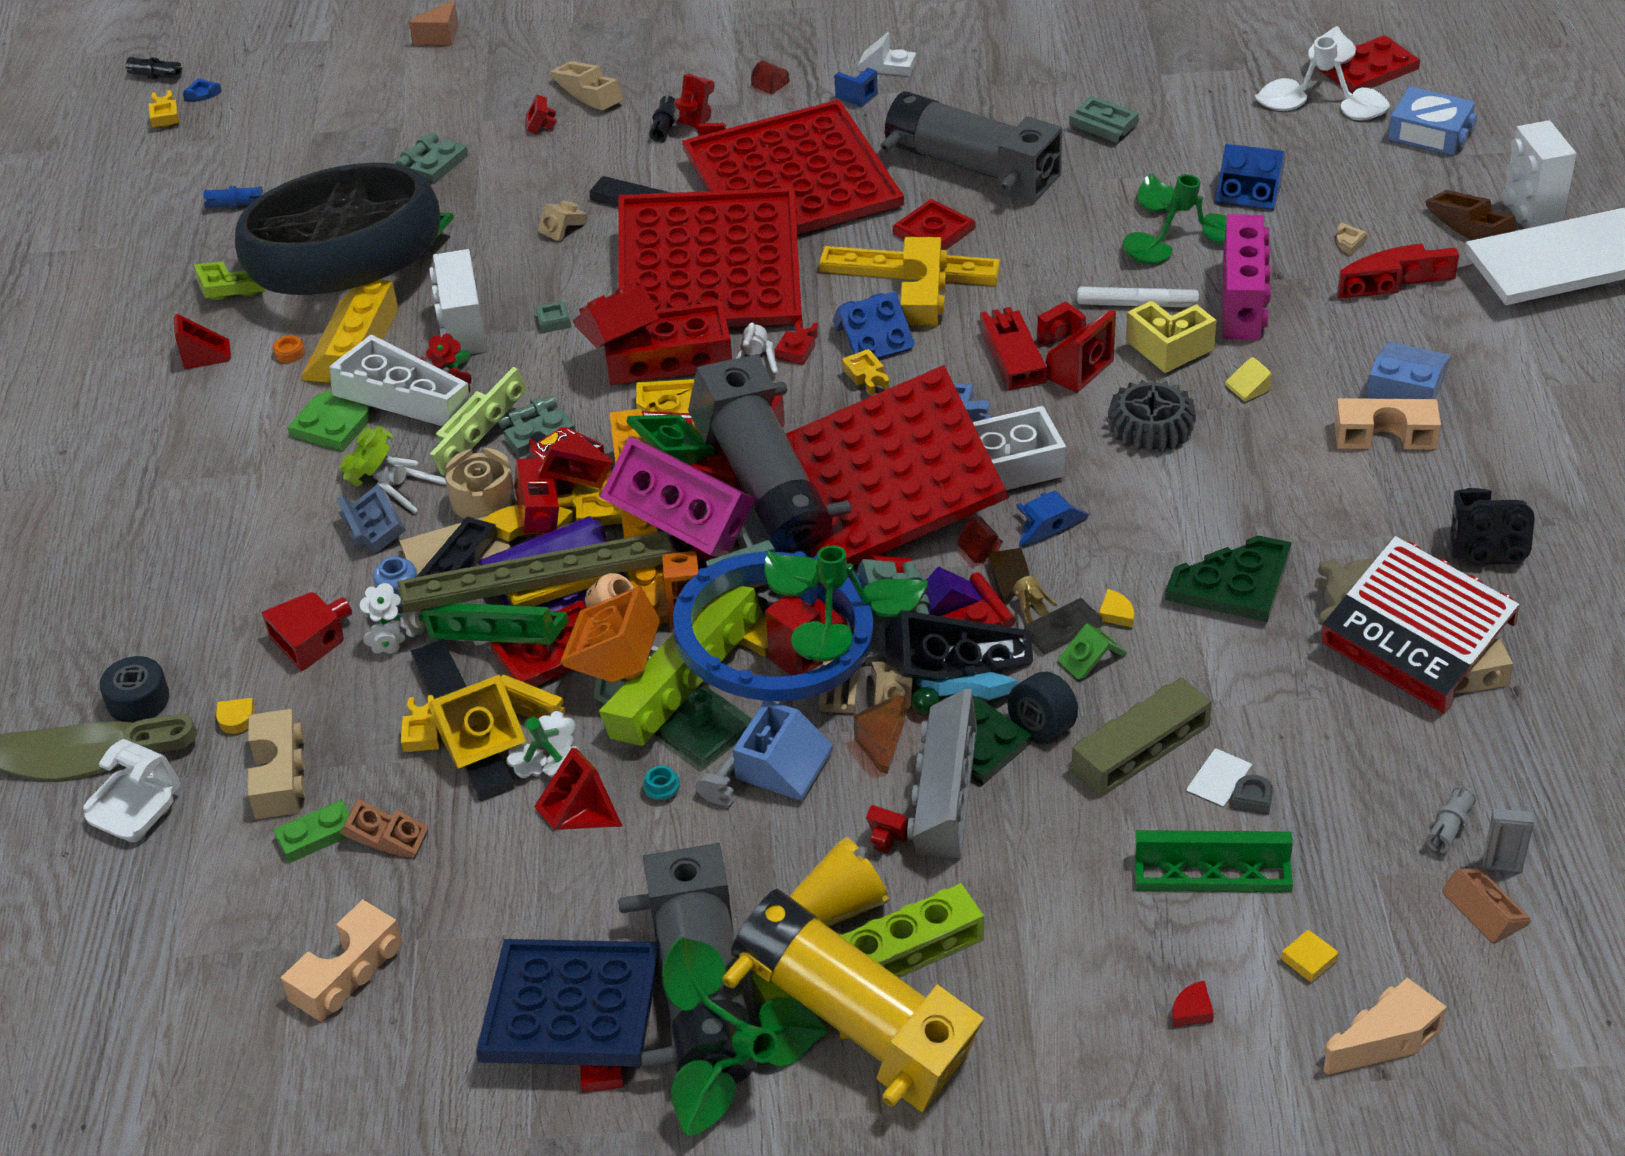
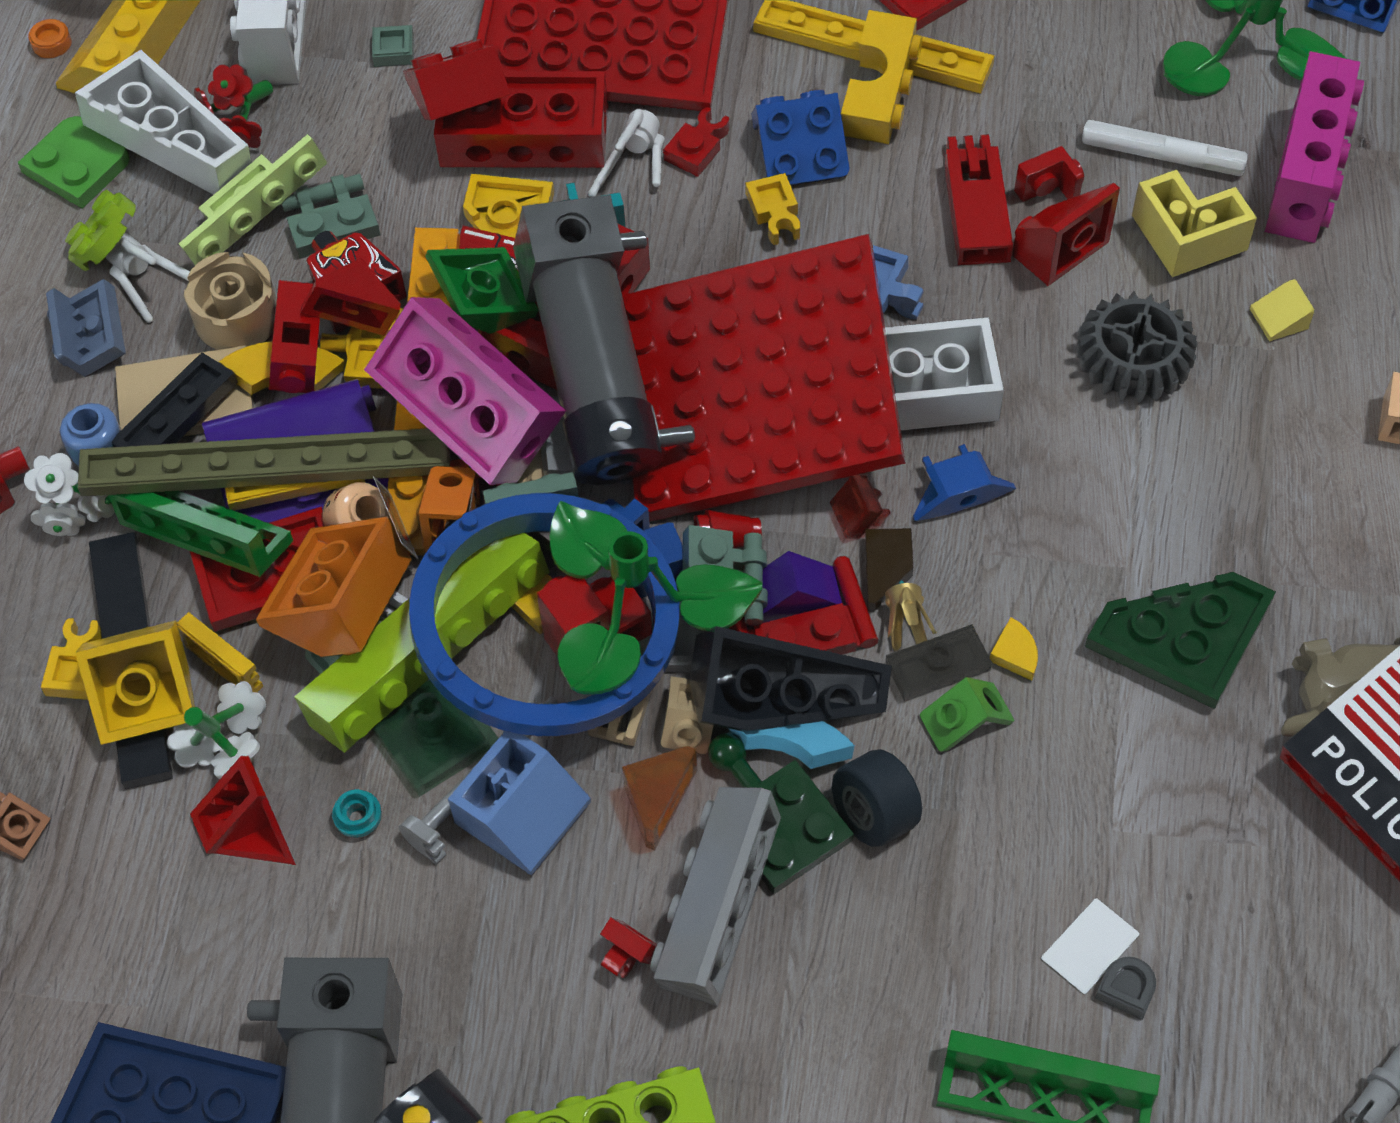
camera: 10 degrees right, 15 degrees up
(637, 583) = (395, 517): none -> sticker
(841, 886) = (532, 1041): yellow cone -> none
(1140, 736) = (997, 866): olive brick -> none

